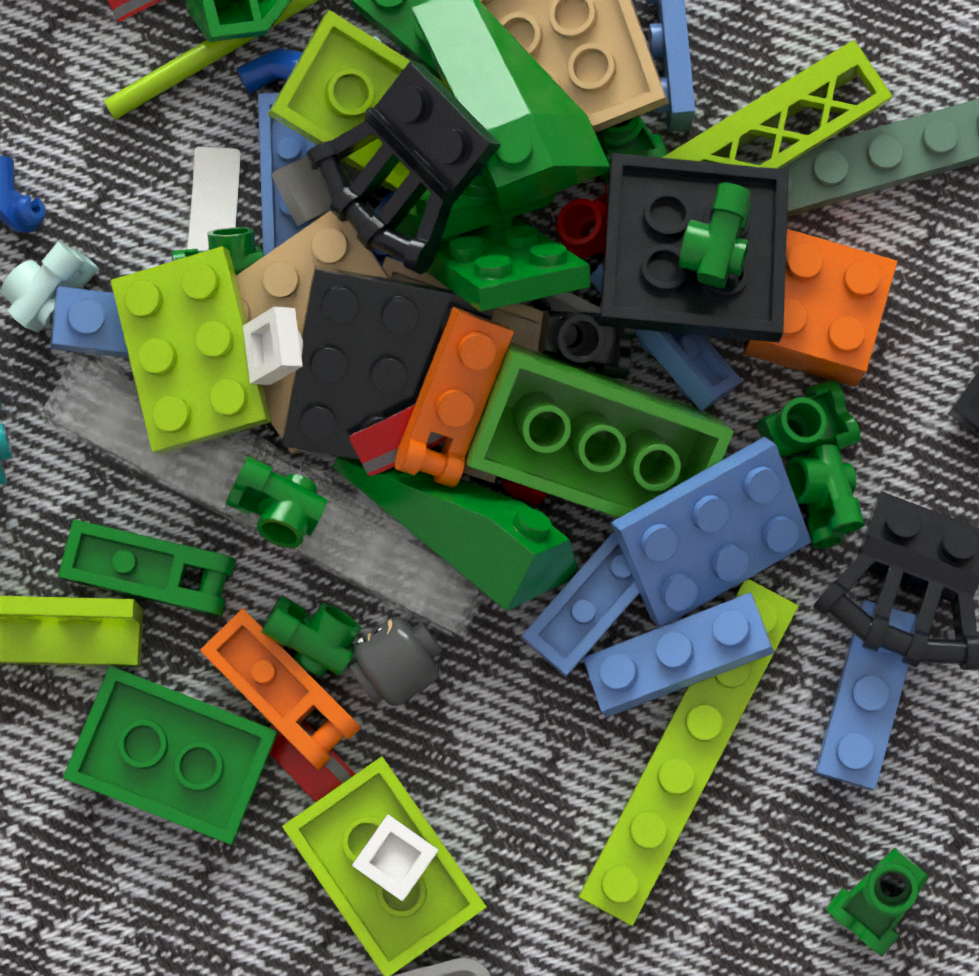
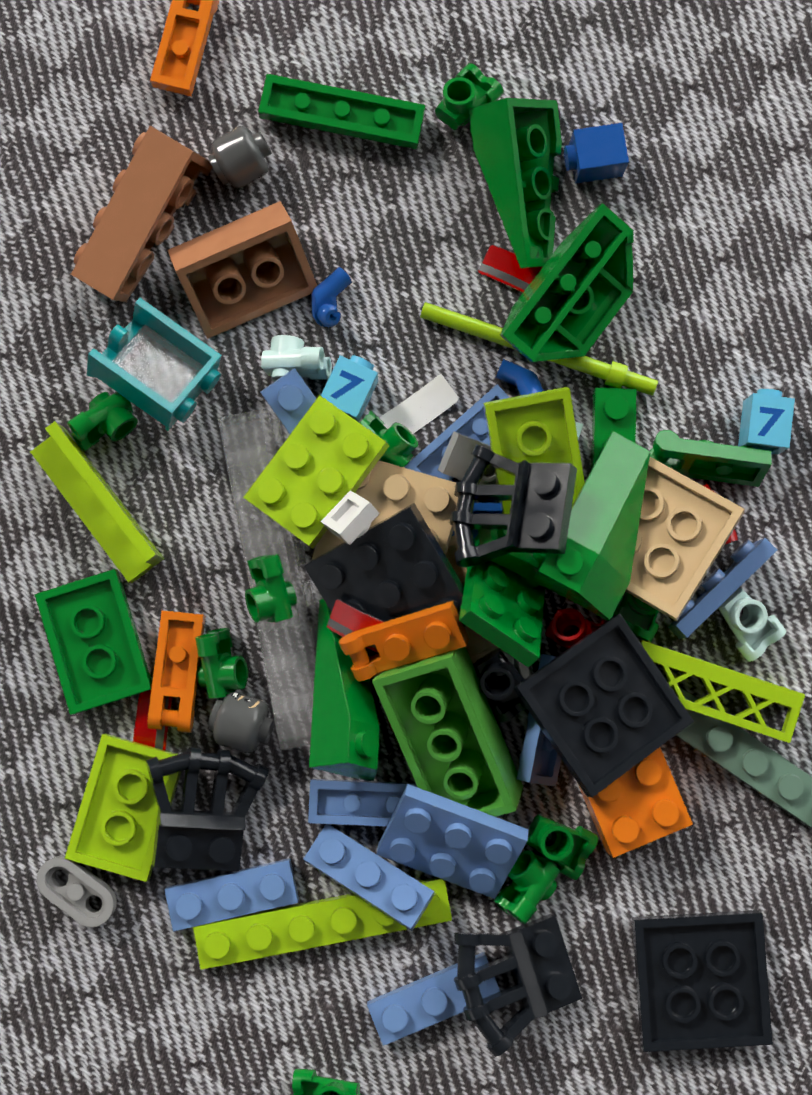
camera: 50 degrees right, 5 degrees up
(124, 242) = (351, 385): none -> medium azure brick
(144, 567) = (184, 542): green plate -> none
(395, 858) = (130, 813): white plate -> none
(486, 809) = (196, 837): none -> black plate
(577, 827) = (231, 894): none -> medium blue plate
(717, 247) = (608, 721): green plate -> none
(735, 40) = (755, 628): none -> light aqua plate

